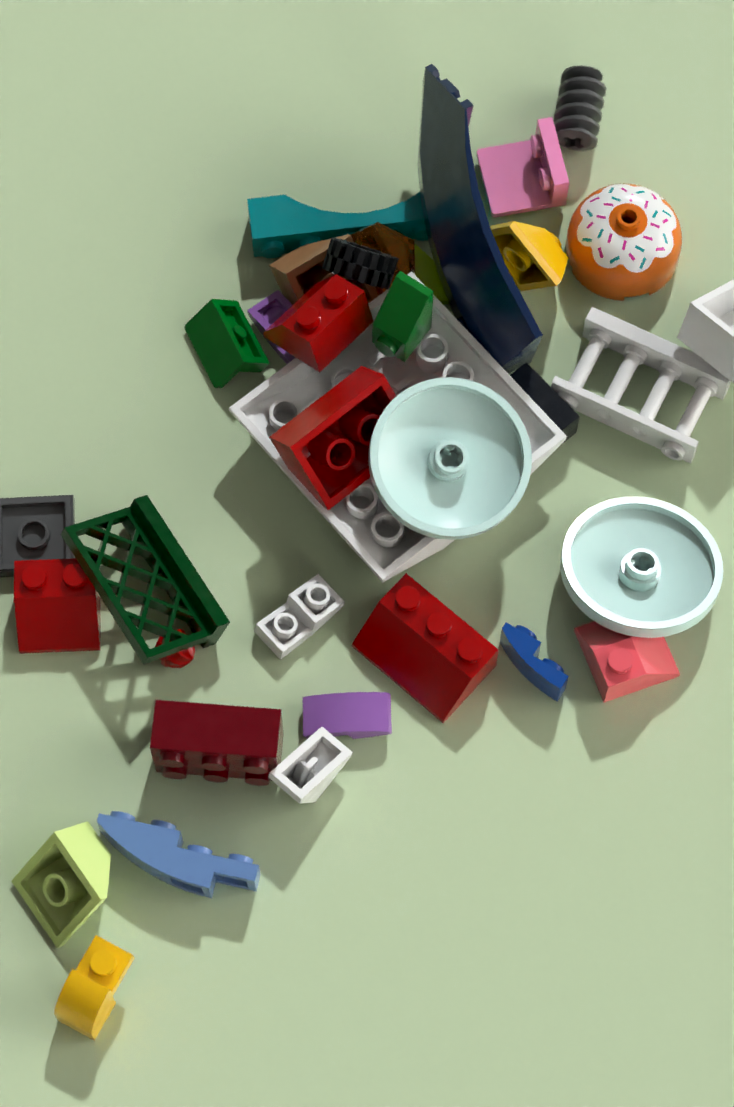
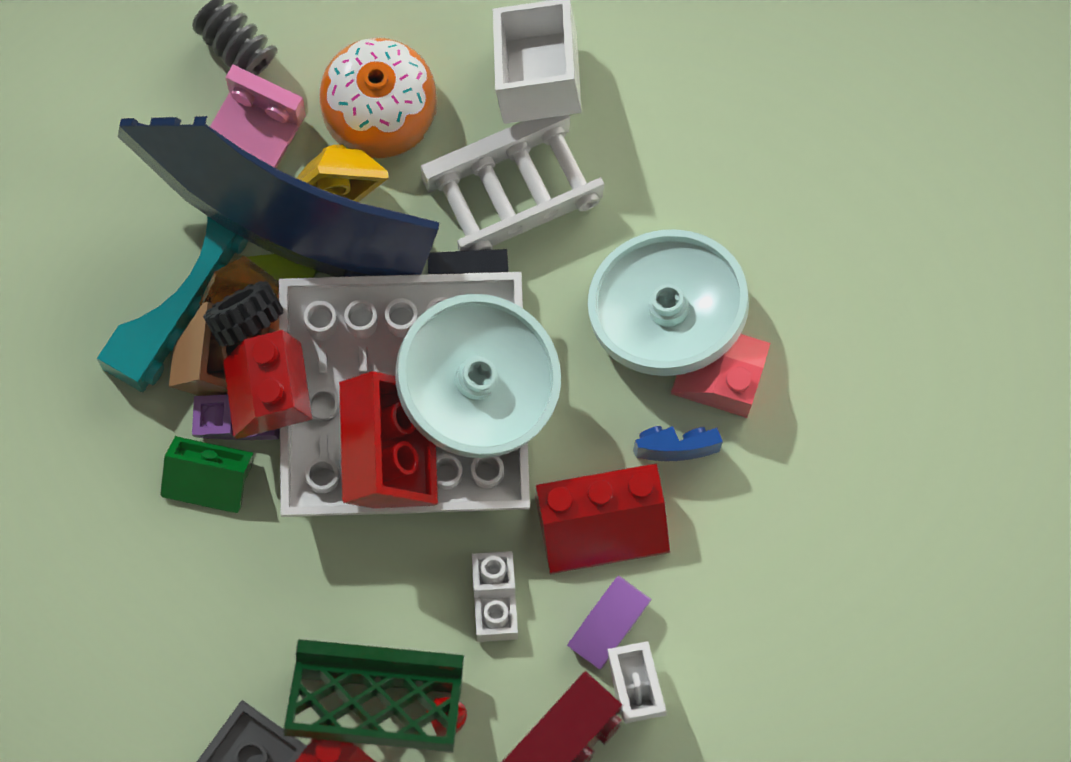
camera: 55 degrees left, 5 degrees up
(403, 317) = (326, 318): green slope -> none

